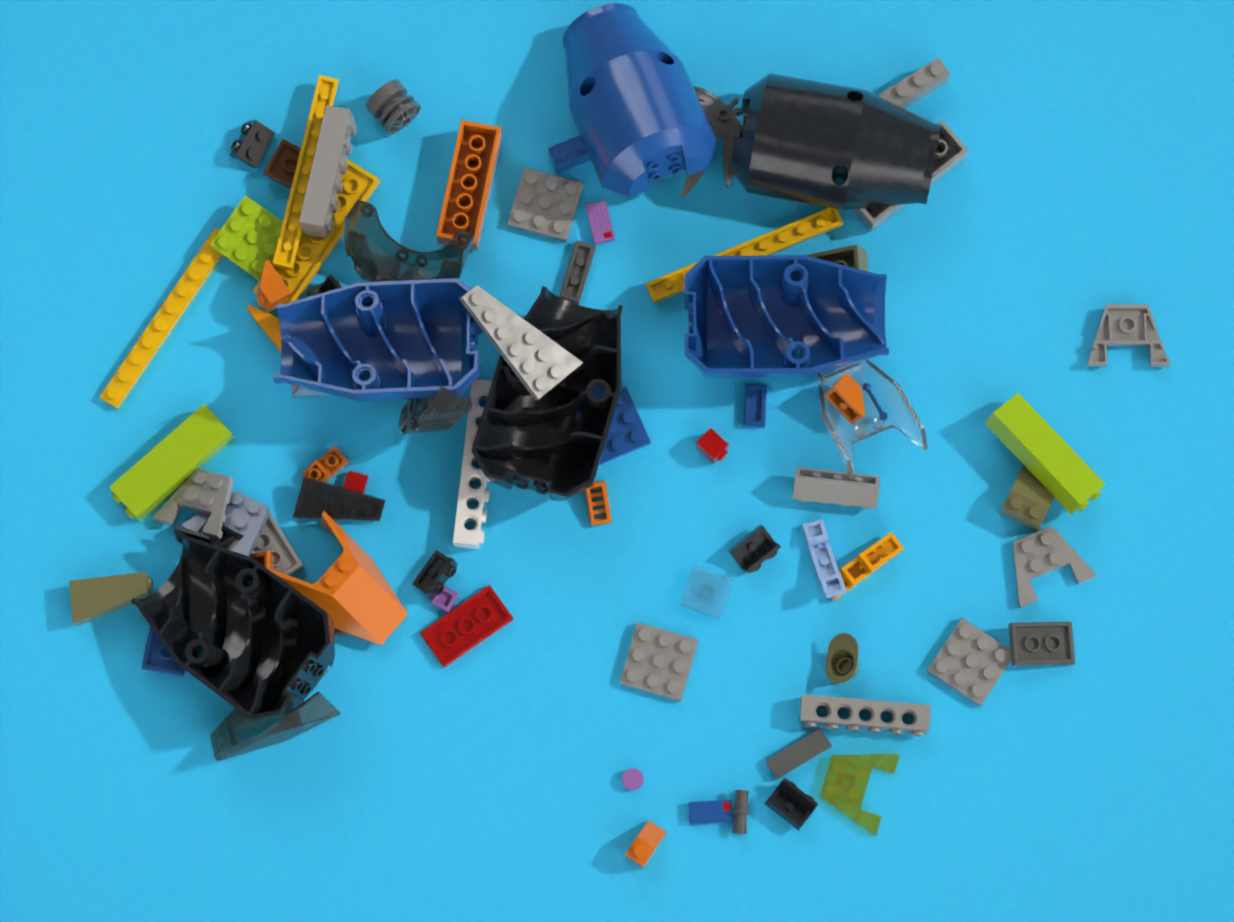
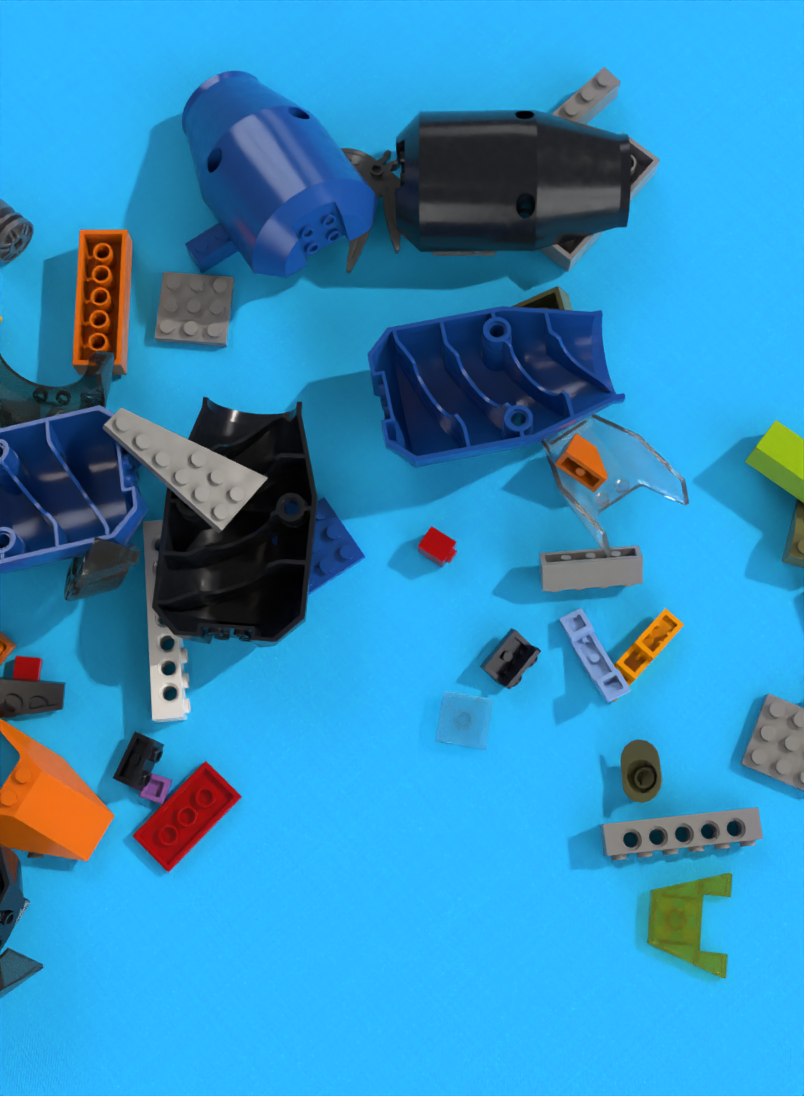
camera: 10 degrees left, 0 degrees up
(577, 272) = (244, 377): dark grey tile -> none
(600, 222) = (260, 317): medium lavender tile -> none
(600, 484) = (308, 641): orange slope -> none
(632, 779) = (419, 966): medium lavender tile -> none
(645, 844) = (451, 1047): orange slope -> none
(659, 661) = (423, 815): light grey plate -> none
(710, 812) = (521, 989): blue tile -> none
(740, 812) = (557, 982): dark grey pin -> none
(755, 406) = (476, 491): blue tile -> none
(763, 245) = (462, 301): yellow plate -> none
(791, 803) = (616, 961): black bracket -> none
(798, 753) = (611, 895): dark grey tile -> none
(882, 415) = (626, 475): blue hinge -> none

